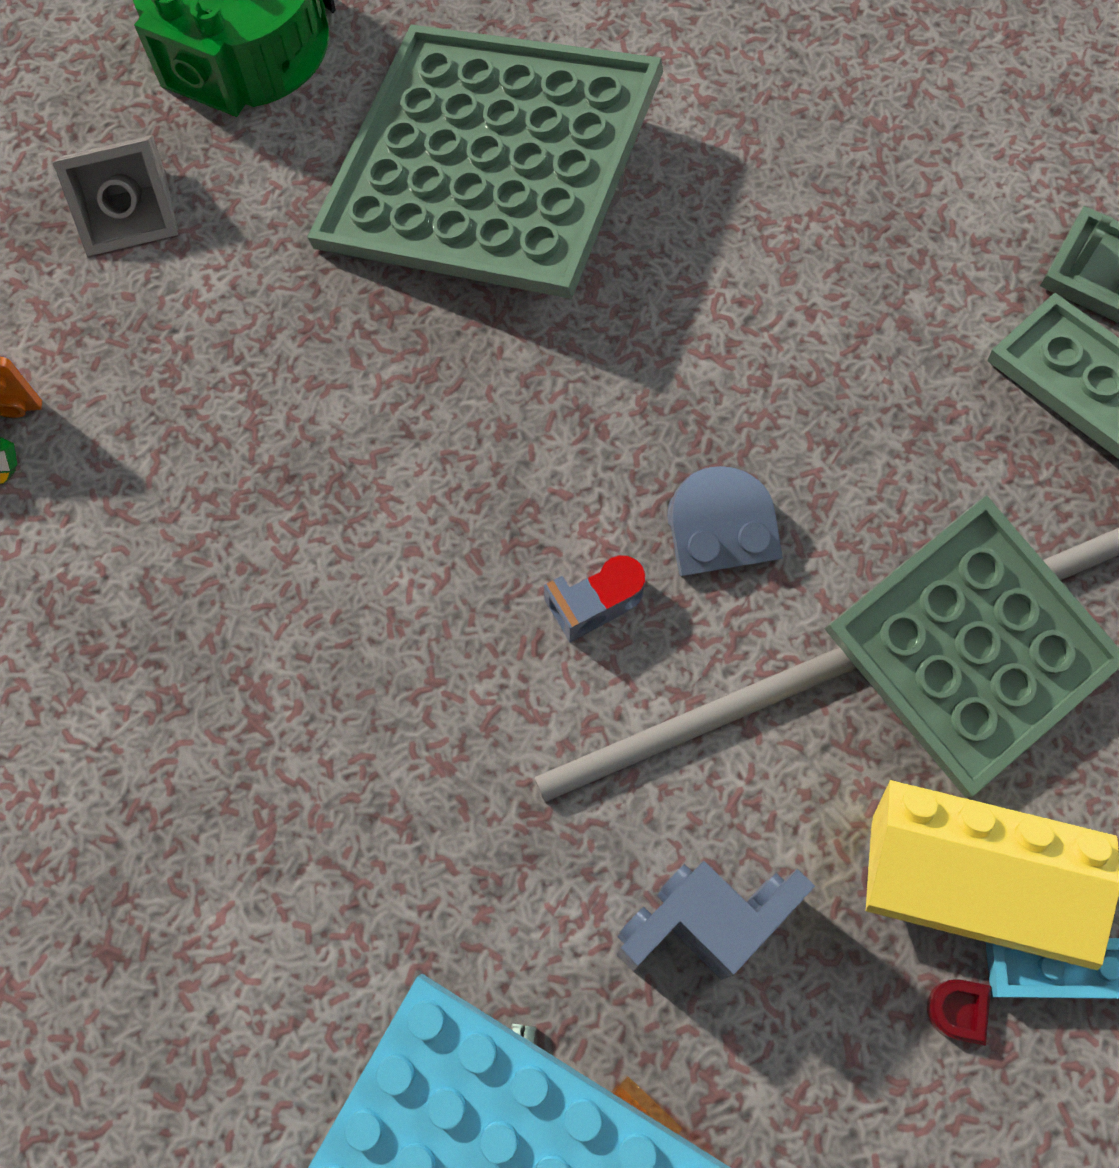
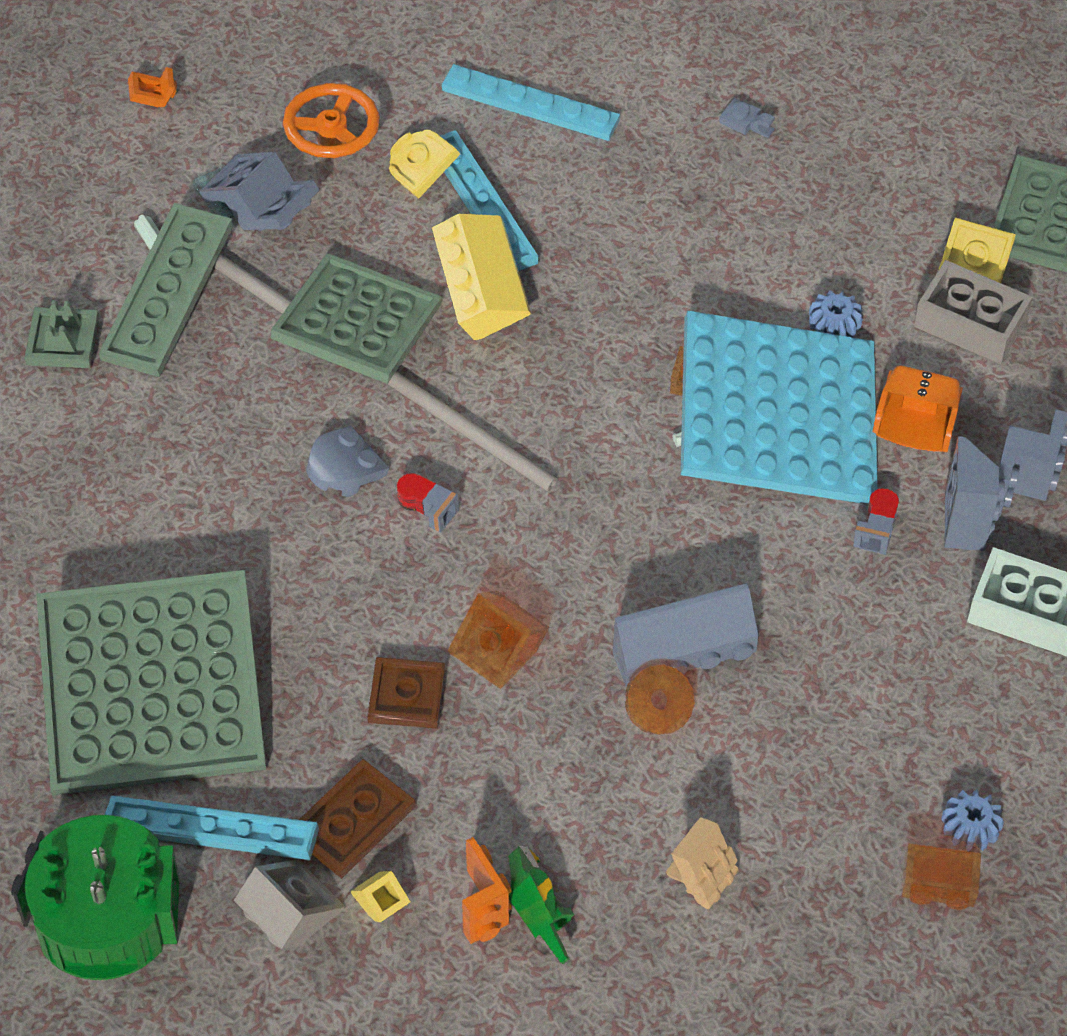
camera: 120 degrees left, 15 degrees down
(63, 284) = (380, 895): none -> light yellow brick
(68, 751) = (679, 699): none -> clear orange tile
(153, 824) = (687, 633): none -> sand blue slope
(182, 303) = (356, 816): none -> reddish brown plate
(259, 156) = (219, 827): none -> medium azure tile
(313, 437) = (406, 692): none -> reddish brown plate
(321, 585) = (497, 637): none -> clear orange slope
(713, 918) = (575, 362): sand blue bracket -> none
(960, 1010) = (551, 272): dark red tile -> none

